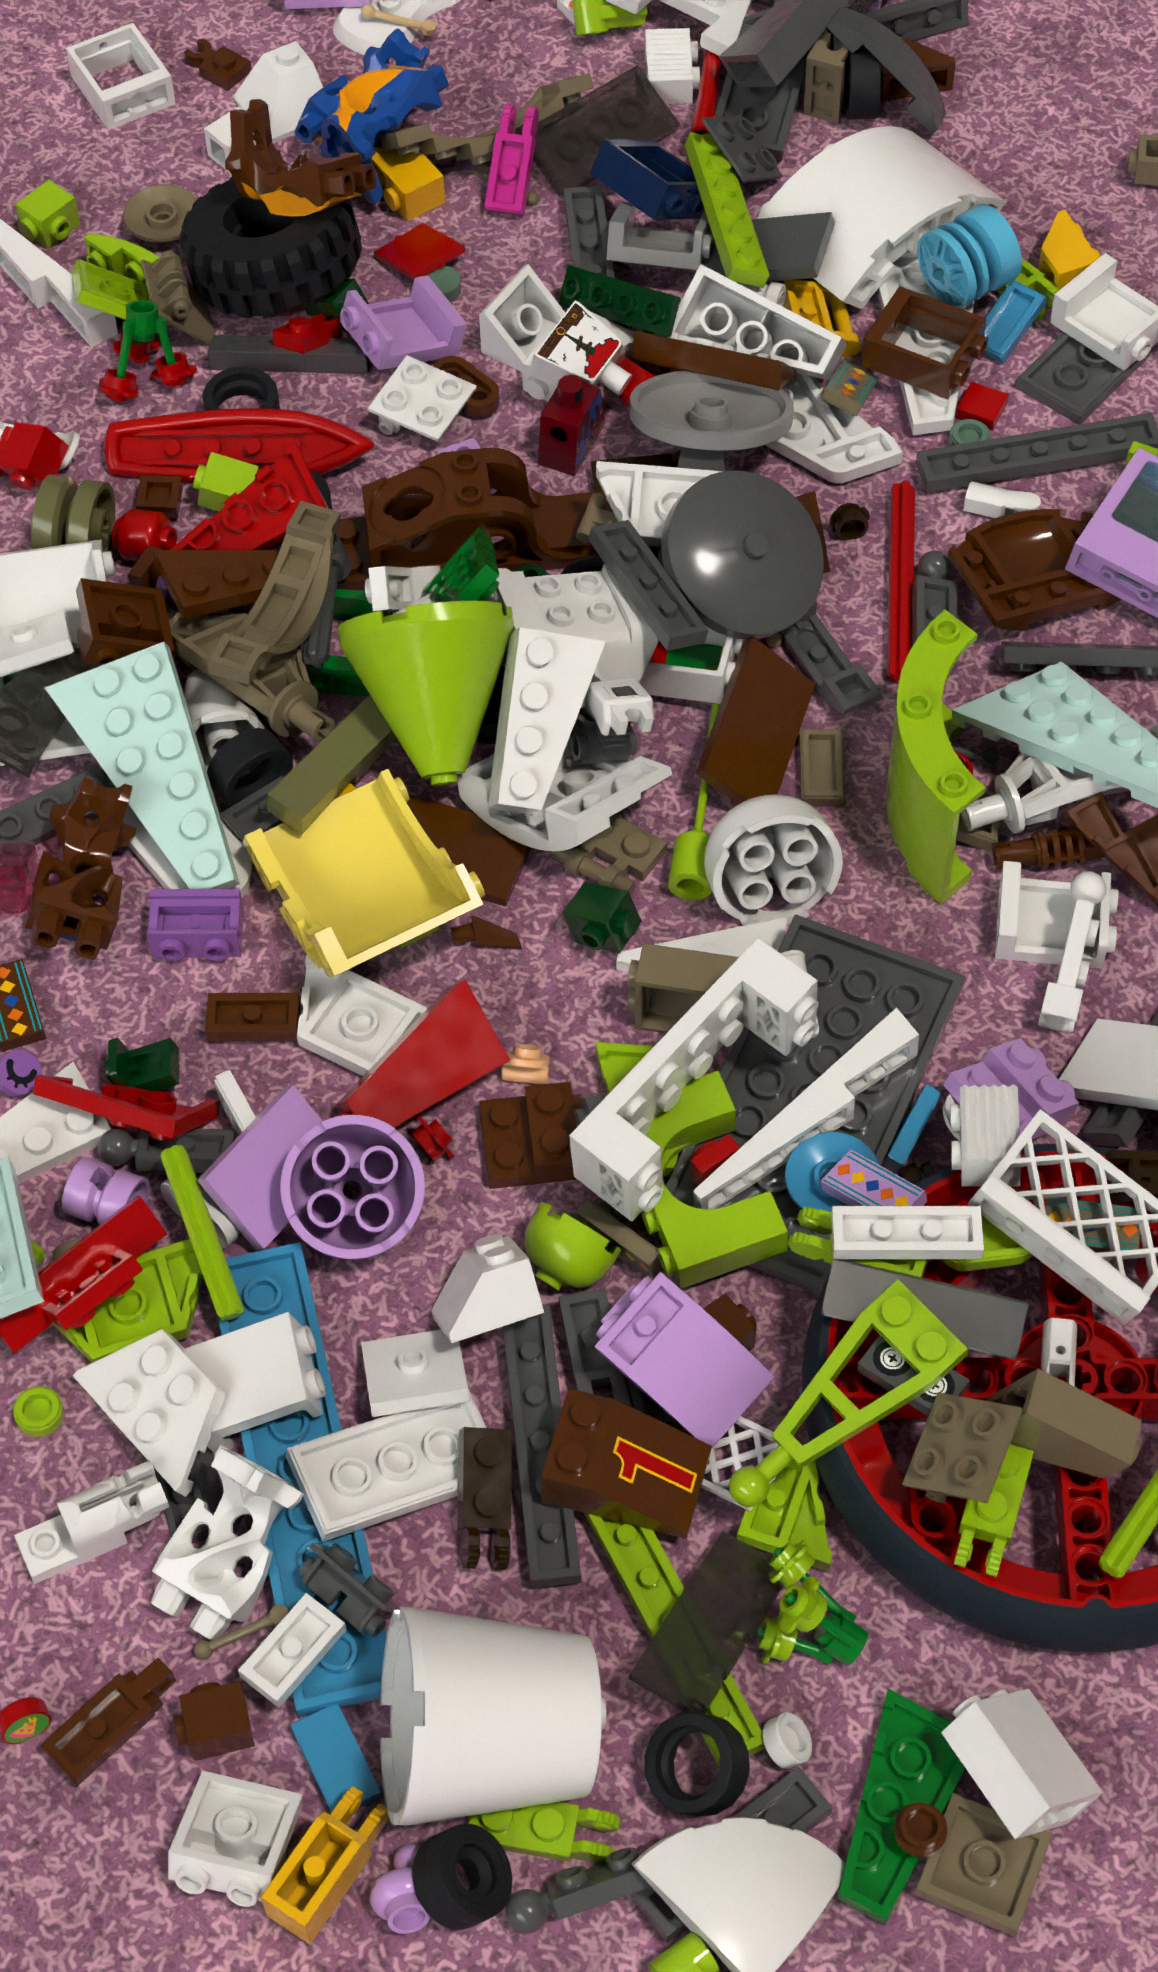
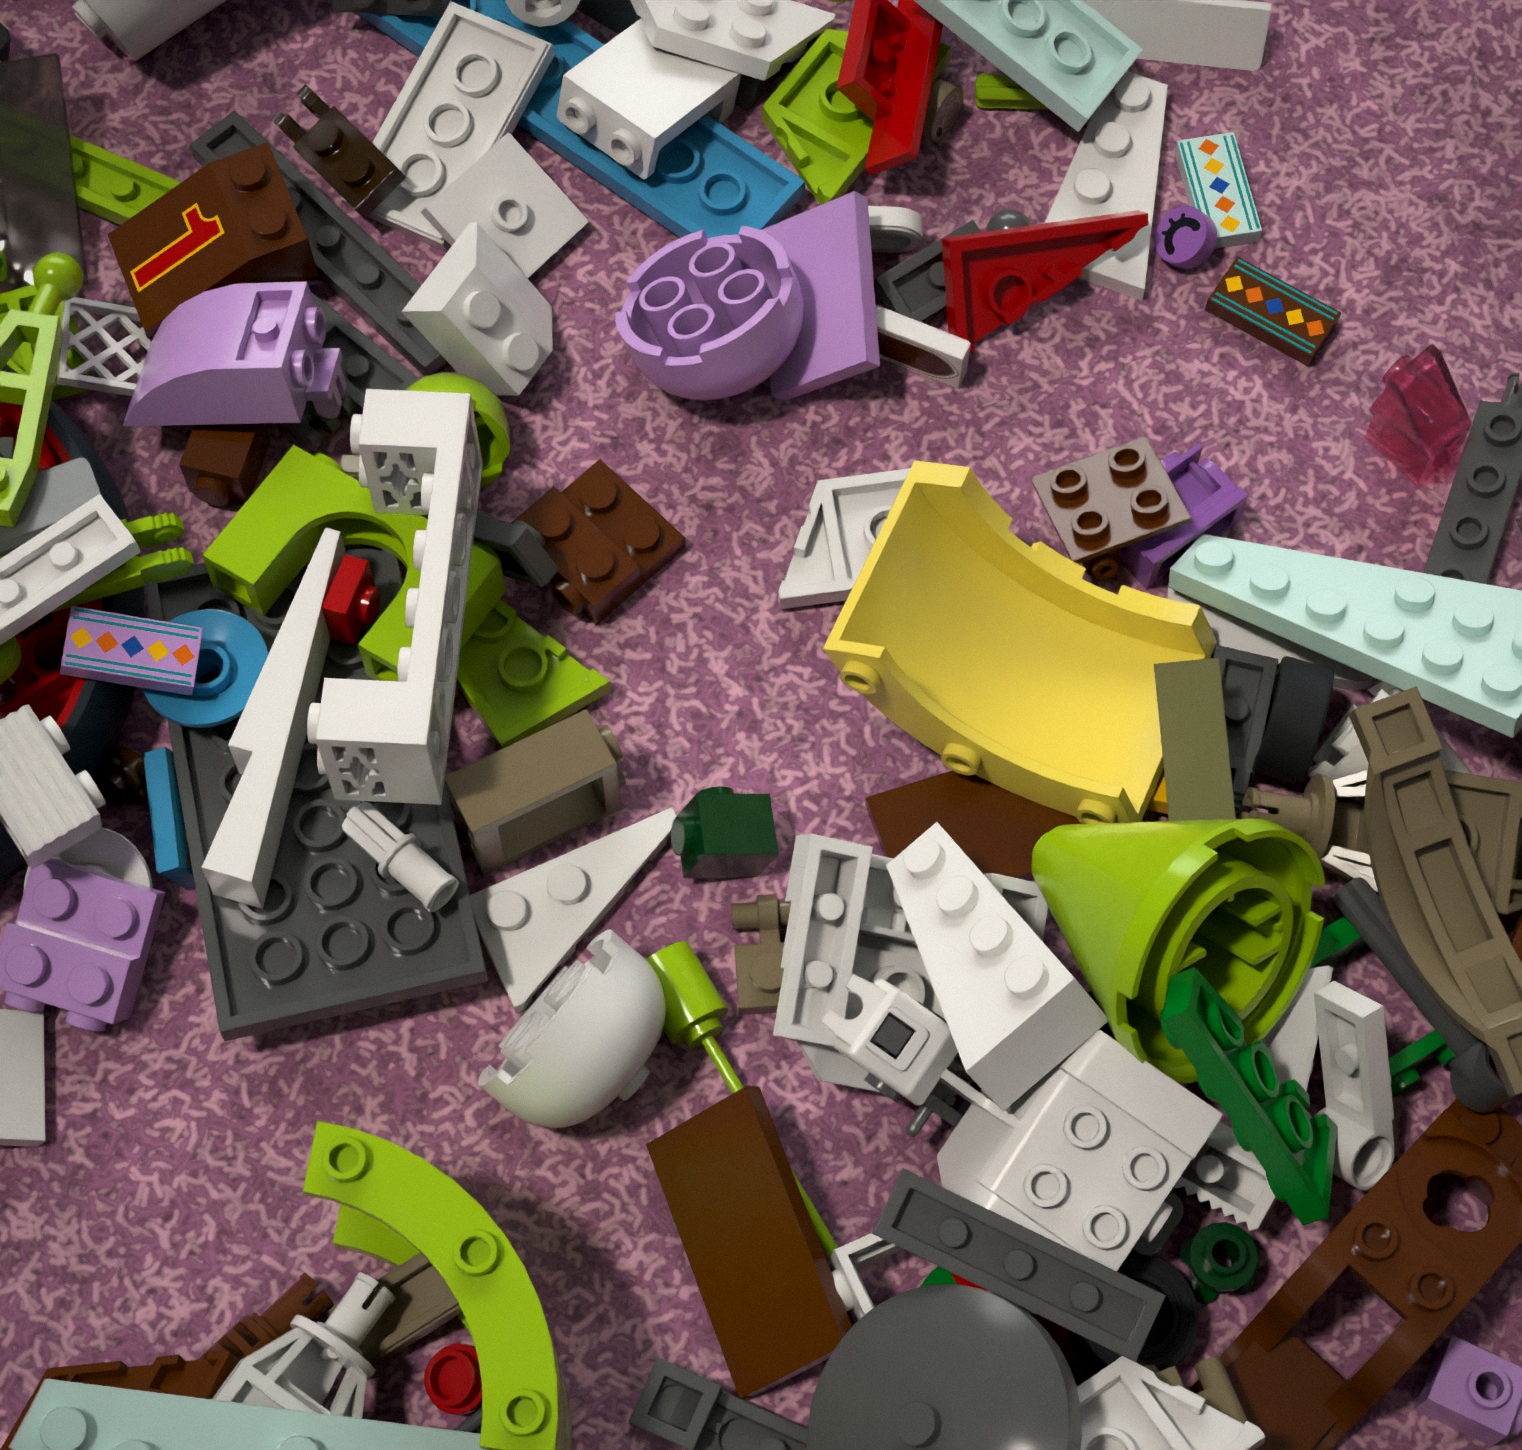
camera: 140 degrees right, 10 degrees up
(87, 844) = (1313, 426): reddish brown hips -> none
(99, 1193) = (946, 169): lavender wheel -> none
(147, 1067) = (1067, 324): dark green bracket -> none
(202, 1233) = (824, 176): lime axle -> none
(228, 937) = (1110, 504): none -> hinge
(252, 1016) = (1018, 452): reddish brown plate -> none
(430, 1061) = (765, 513): red slope -> none
(433, 1138) = (695, 459): red plate -> none
(485, 935) = (849, 743): reddish brown bar -> none
(526, 1065) = (671, 618): light nougat plate -> none
(822, 767) = (637, 1273): dark tan tile -> none
(1037, 919) = (182, 1248): white panel -> none
(1062, 998) = (98, 1124): white plate -> none

